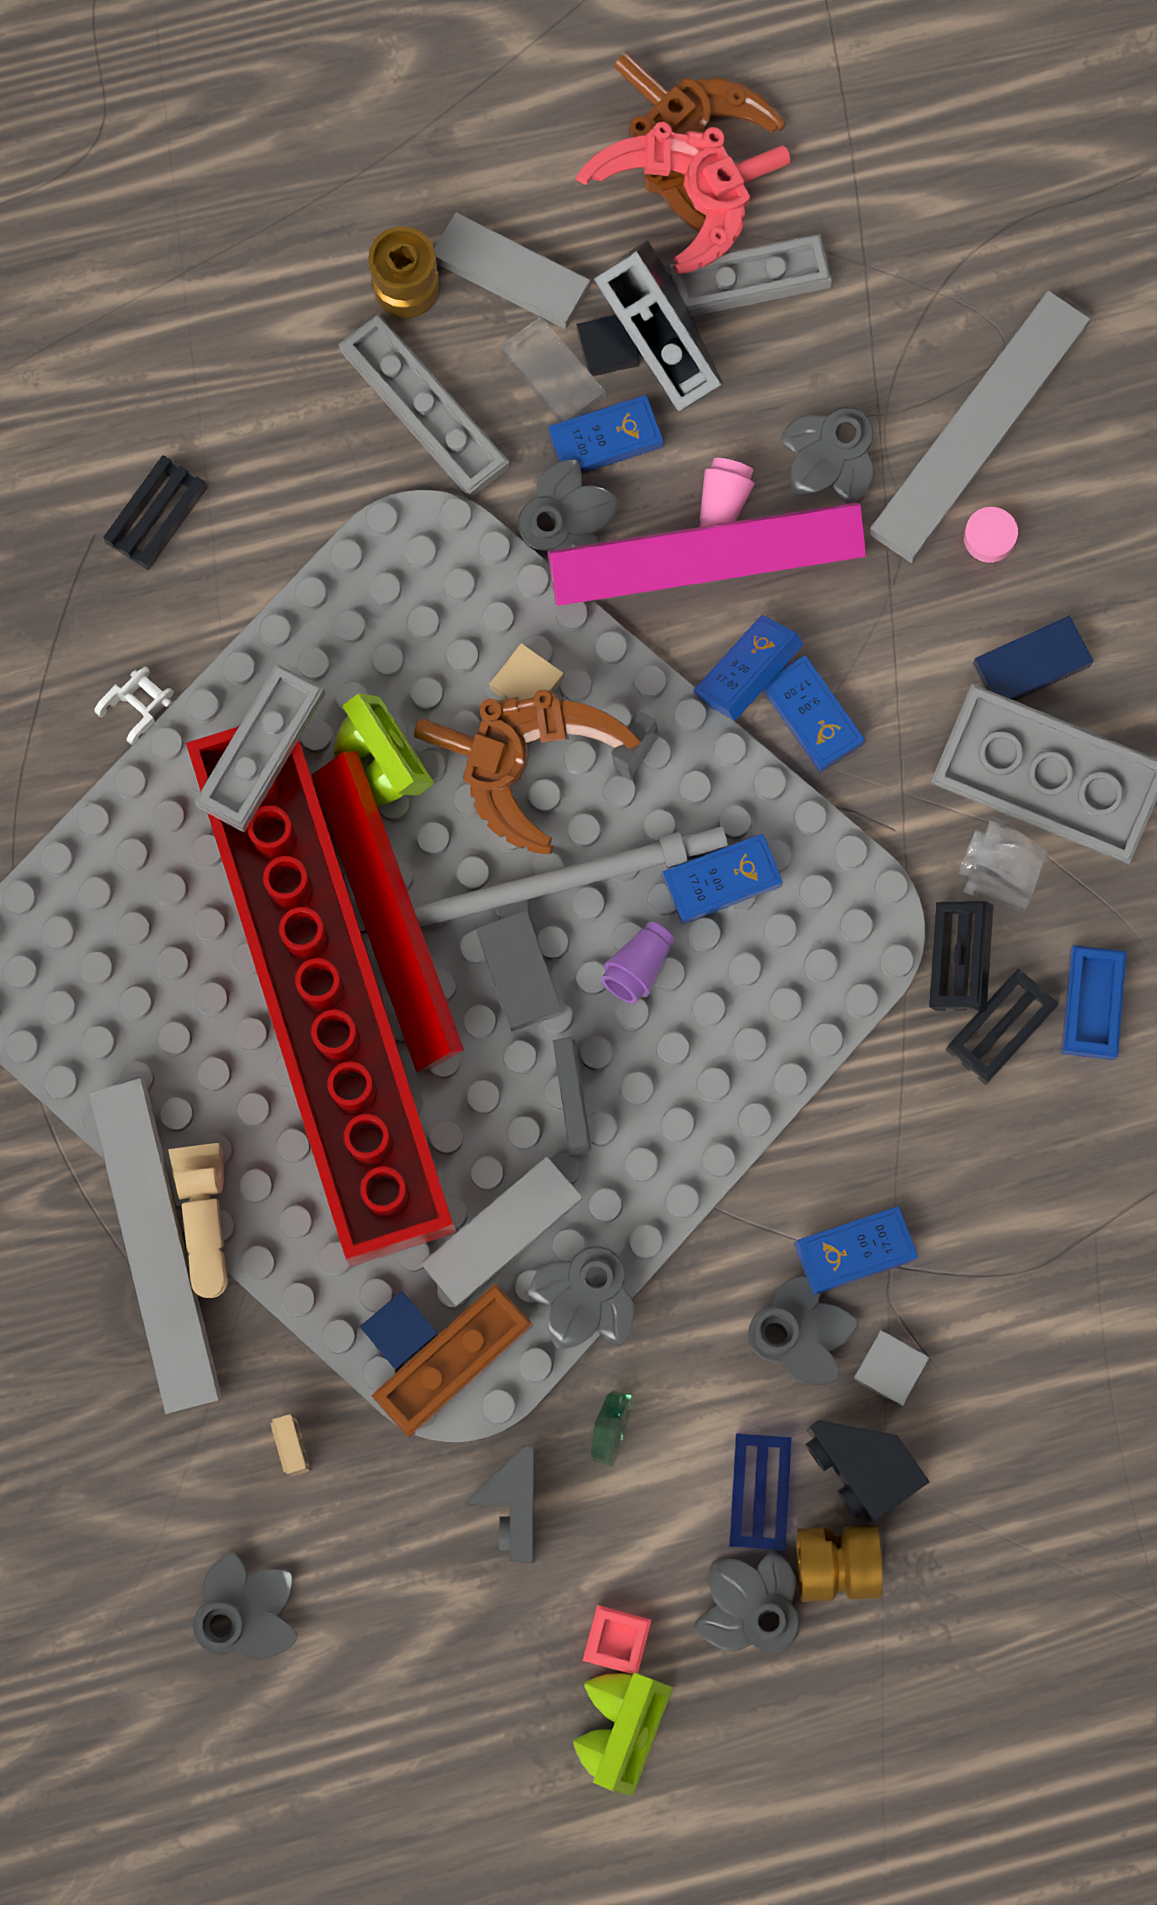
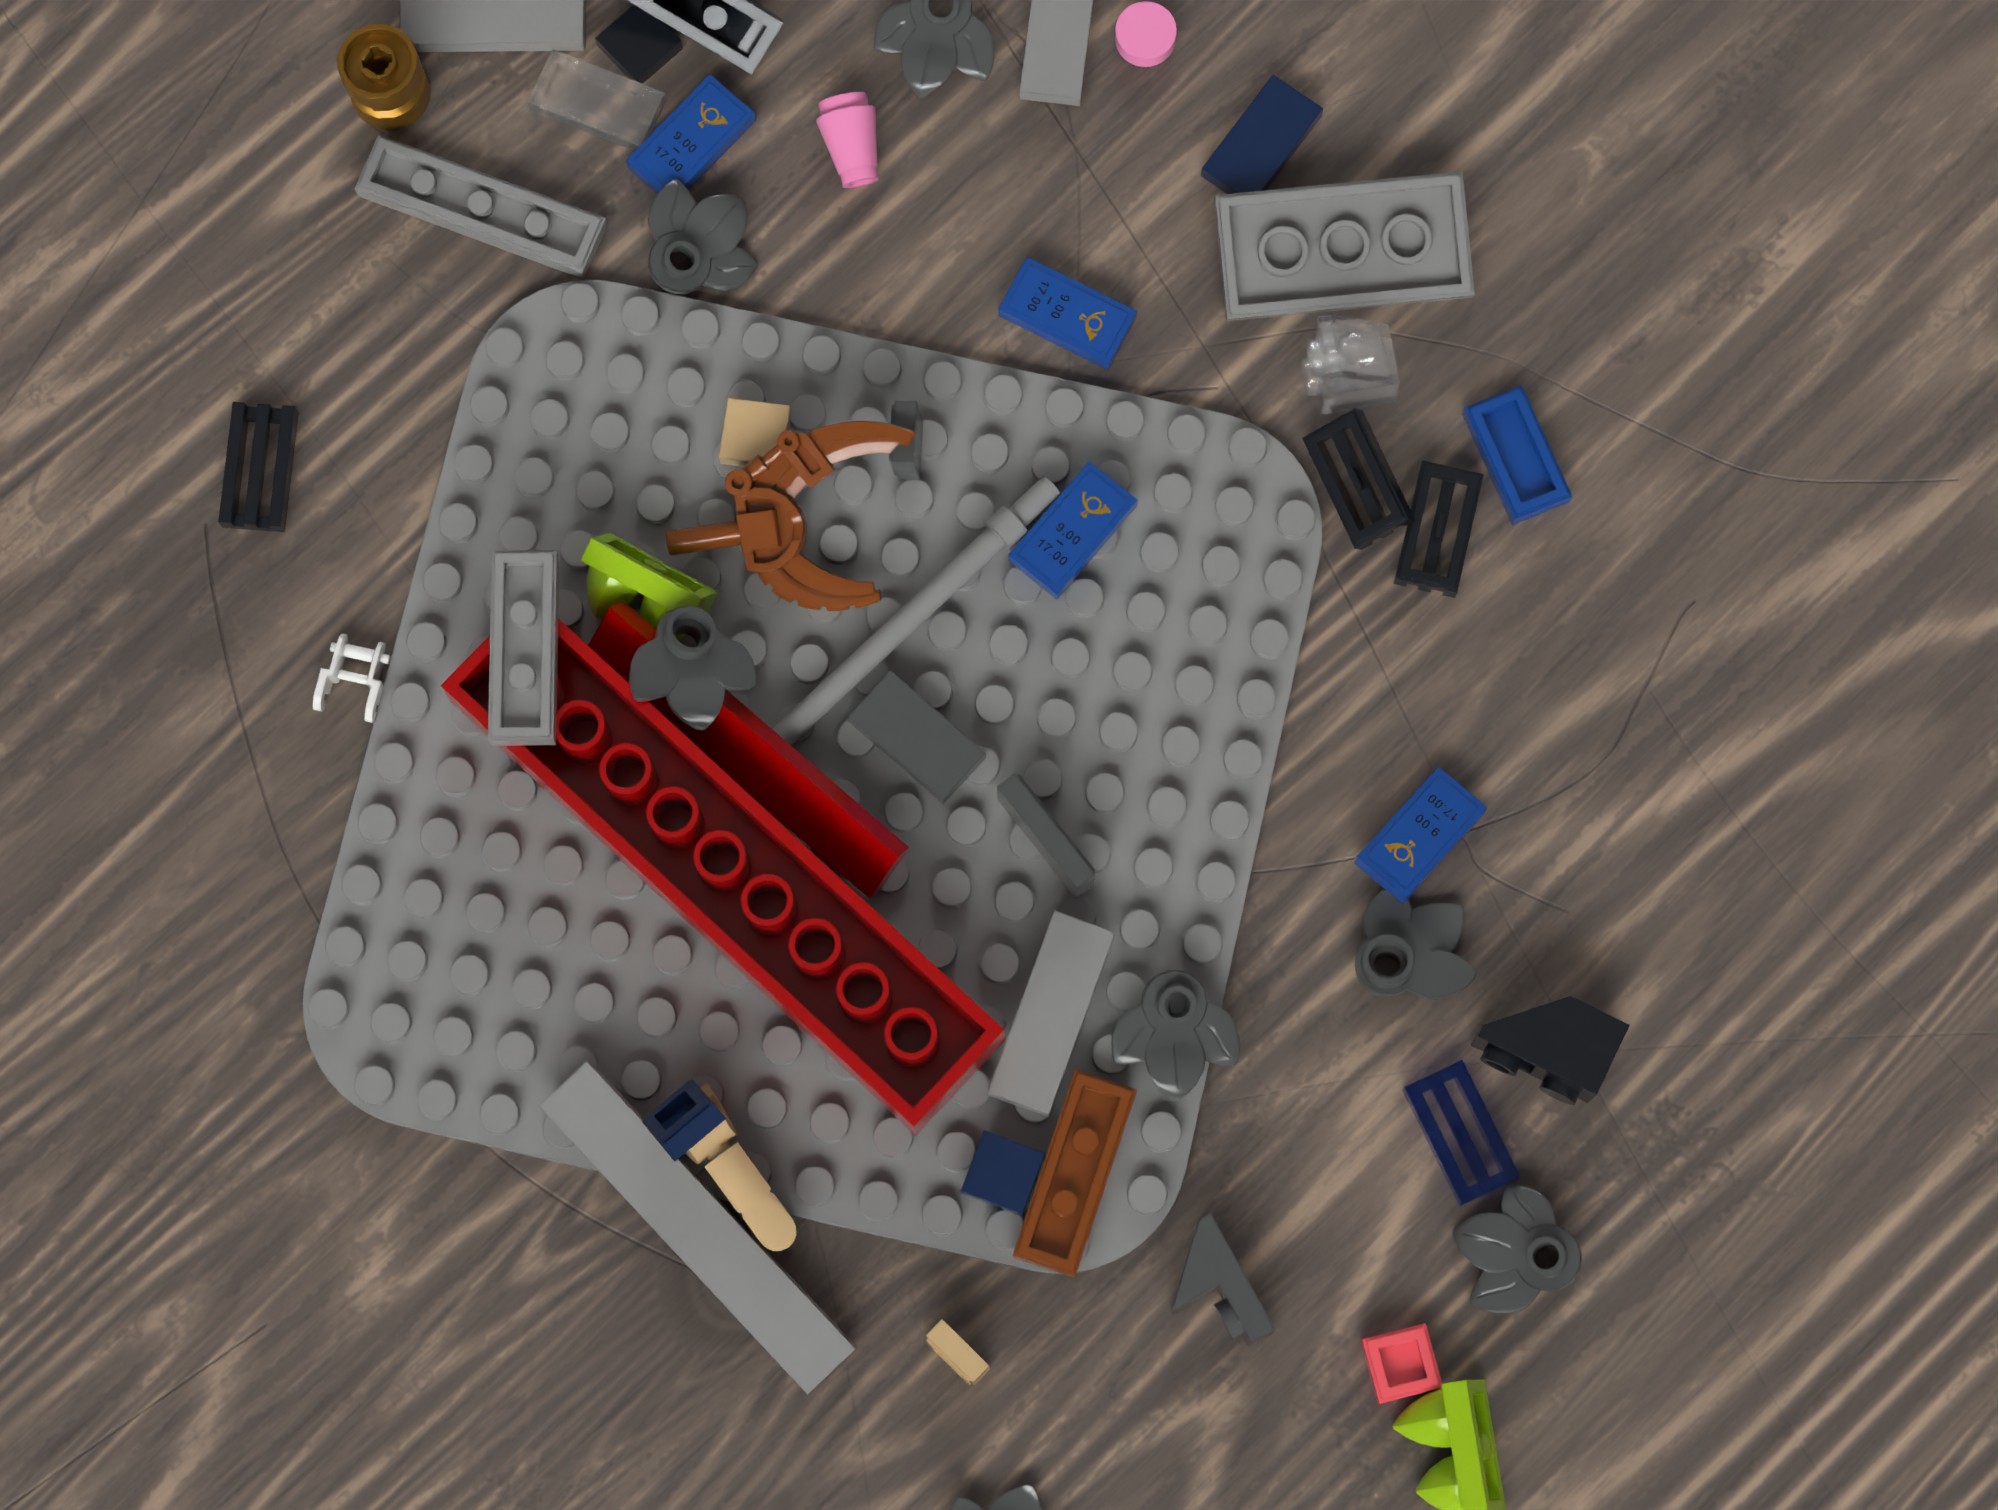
camera: 30 degrees left, 0 degrees up
(183, 1160) = (683, 1119): none -> dark blue tile
(374, 836) = (690, 676): none -> dark grey plate
(610, 1427) = (1274, 1152): clear green tile -> none
(637, 964) = (1036, 664): medium lavender cone -> none
(706, 553) = (867, 205): dark pink tile -> none
(748, 667) = (975, 299): blue tile -> none
(839, 1563) = (1583, 1158): pearl gold wheel -> none
(890, 1368) = (1521, 935): light grey tile -> none

